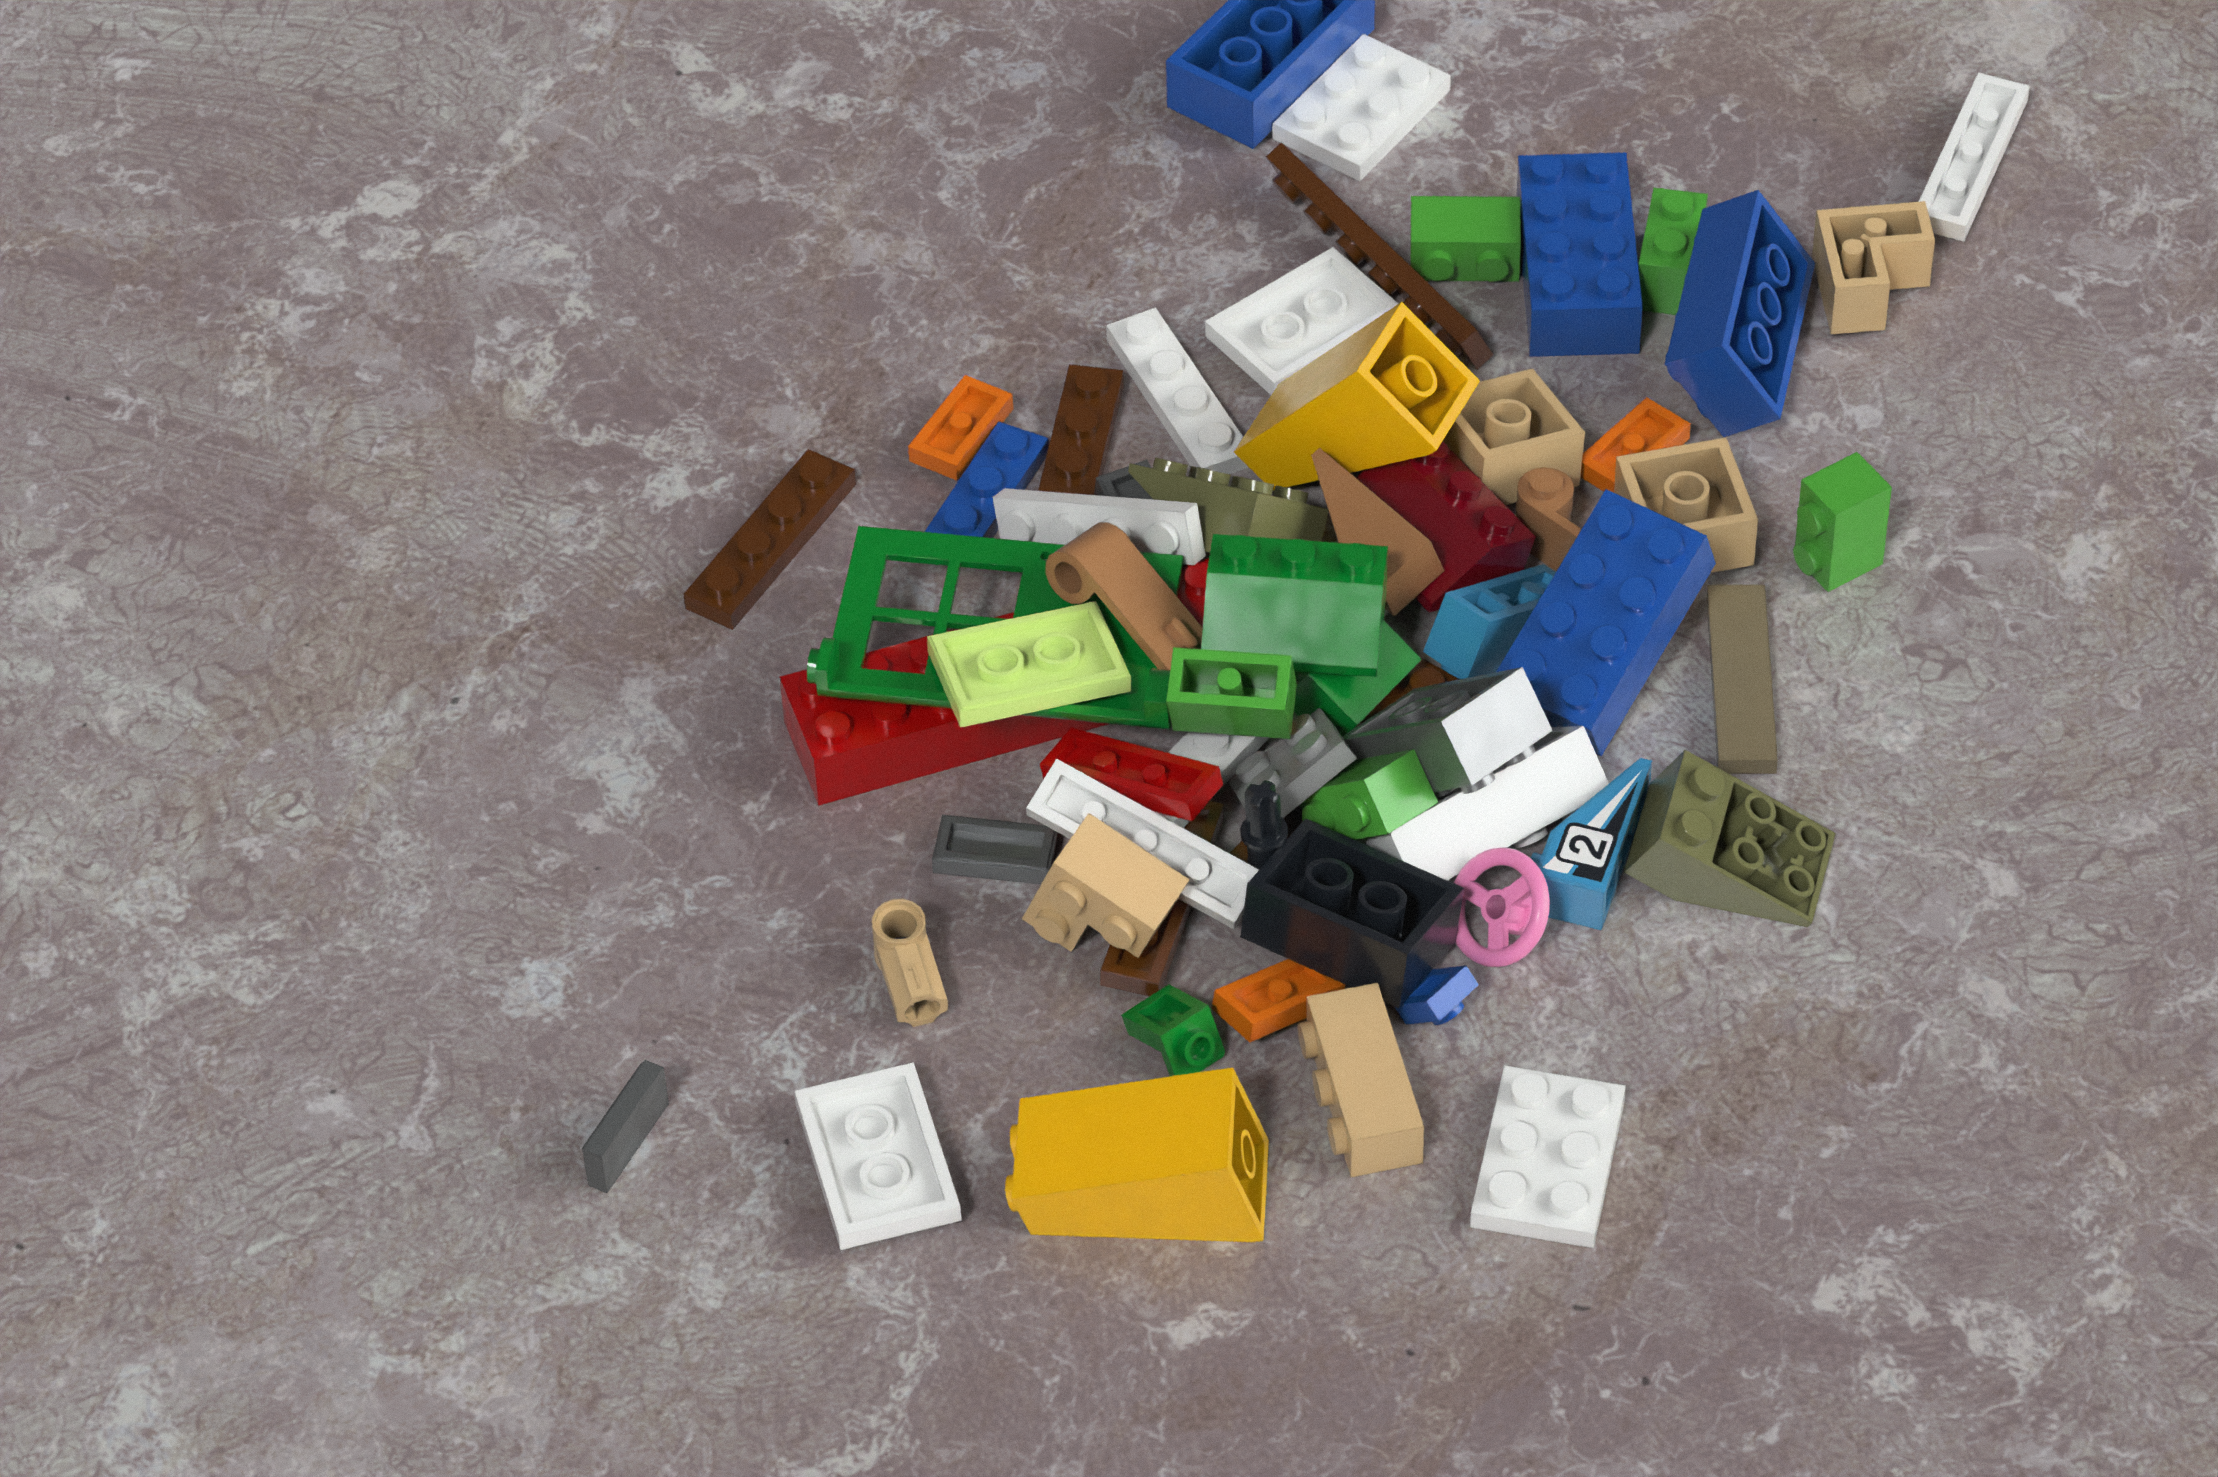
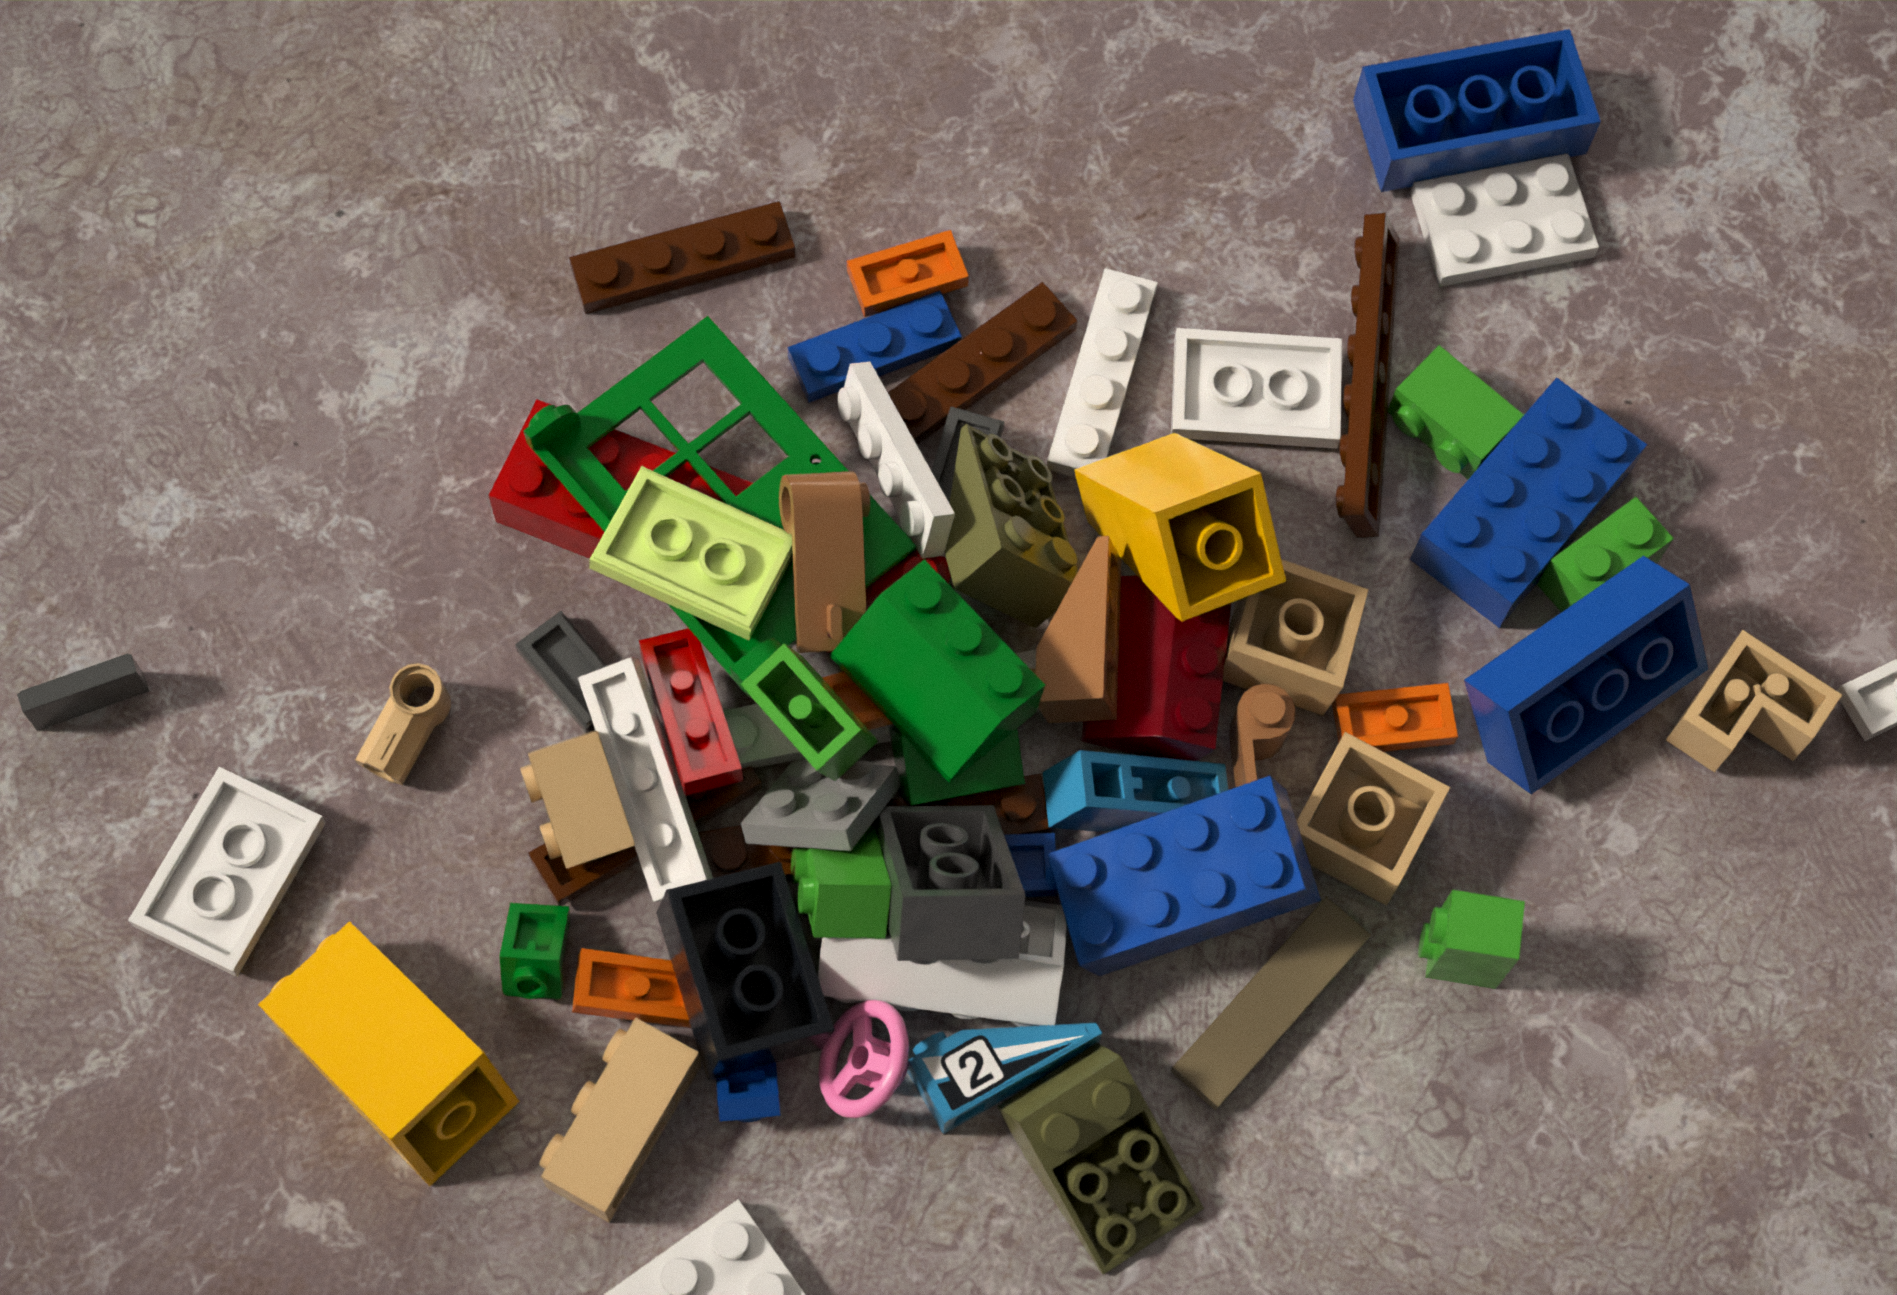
camera: 35 degrees right, 20 degrees up
(1264, 827) = (729, 848): black axle -> none

